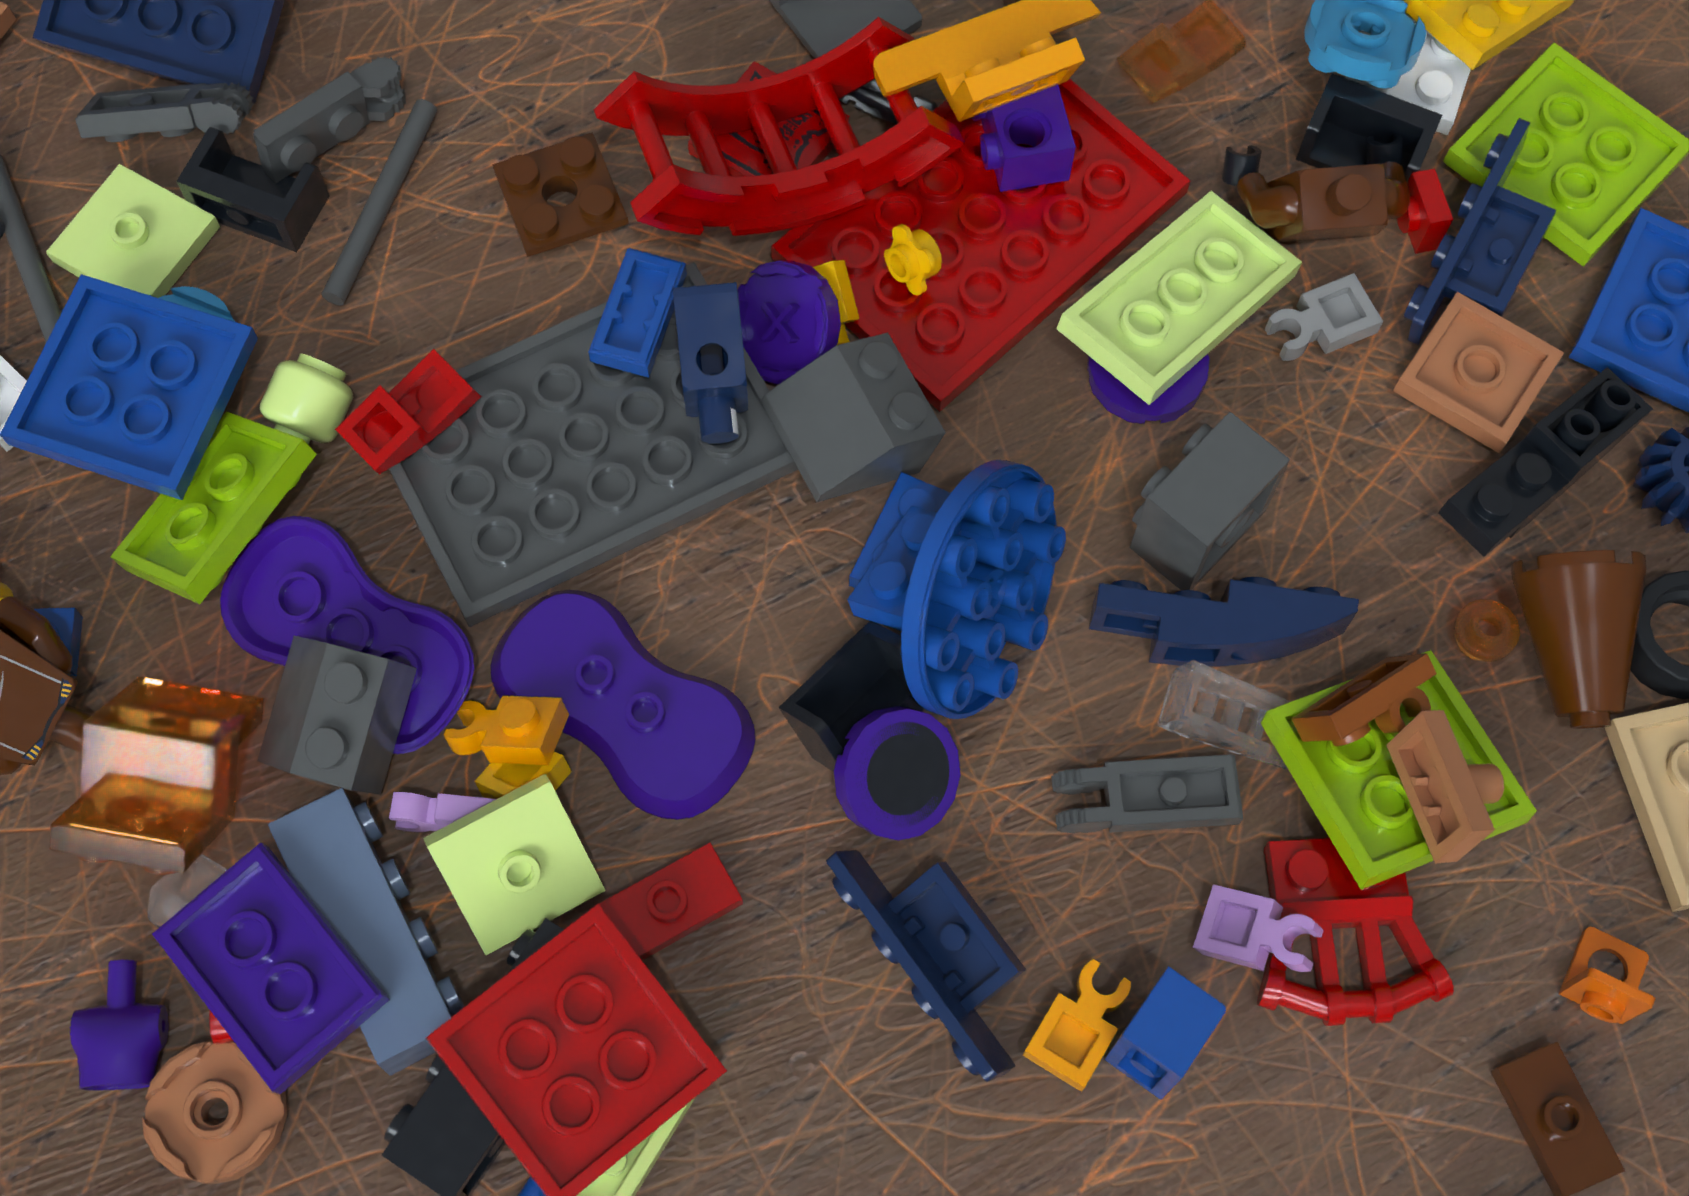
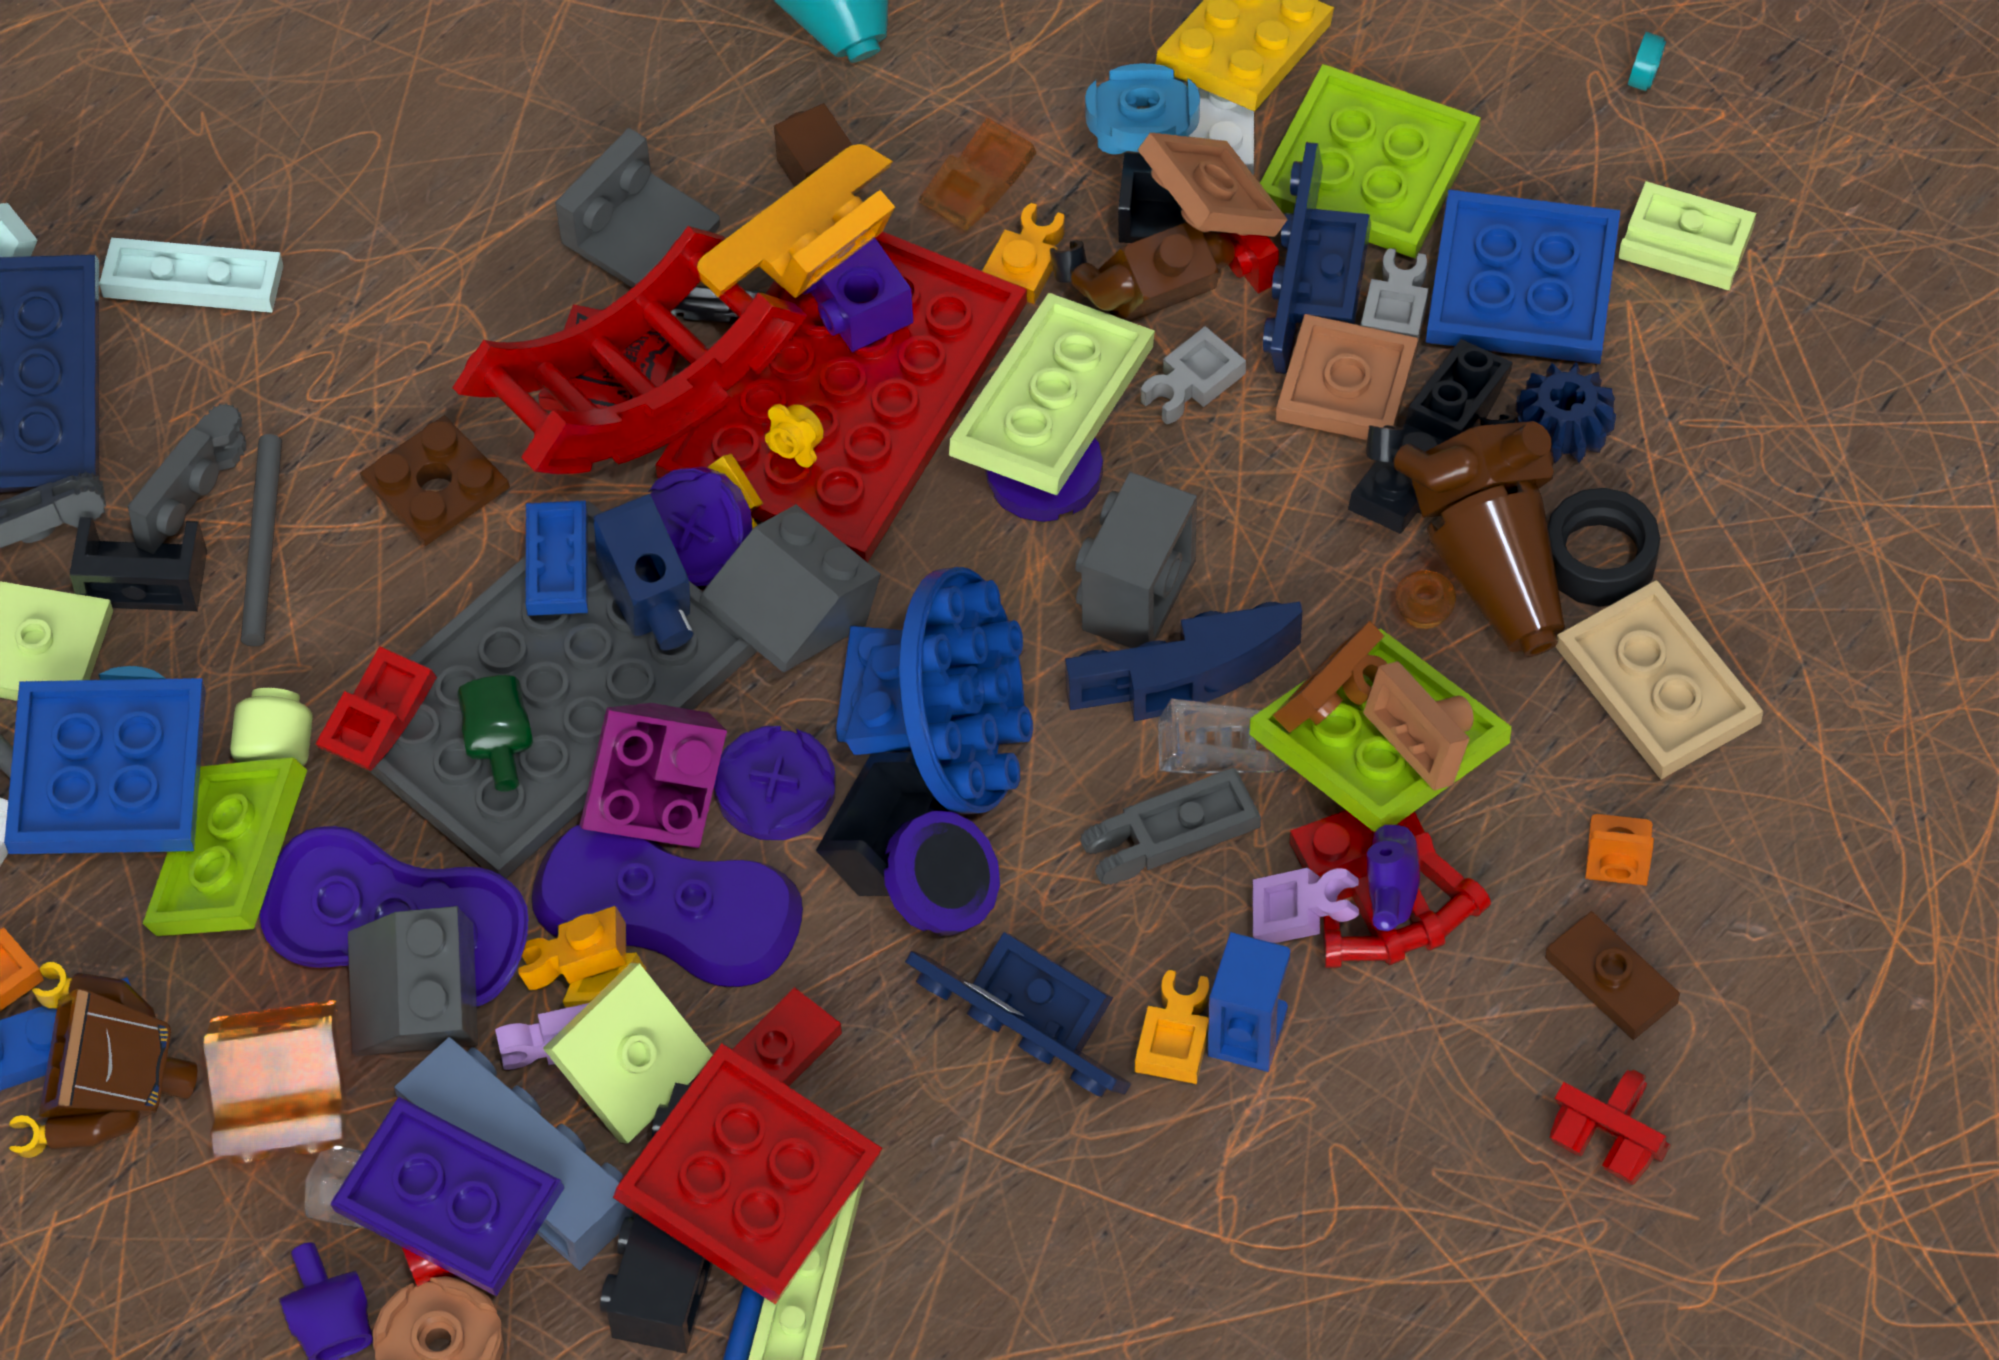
camera: 15 degrees left, 10 degrees down
(515, 467) = (495, 725): none -> dark green piece
(649, 567) = (654, 773): none -> magenta slope
(771, 611) = (775, 783): none -> dark purple tile
(902, 933) = (993, 998): none -> white sticker
(1200, 147) = (1026, 256): none -> light orange plate
(1360, 945) = (1392, 875): none -> dark purple piece
(1409, 133) = (1211, 185): none -> nougat plate
(1554, 306) = (1399, 299): none -> light grey plate
(1584, 515) = (1469, 462): none -> reddish brown torso

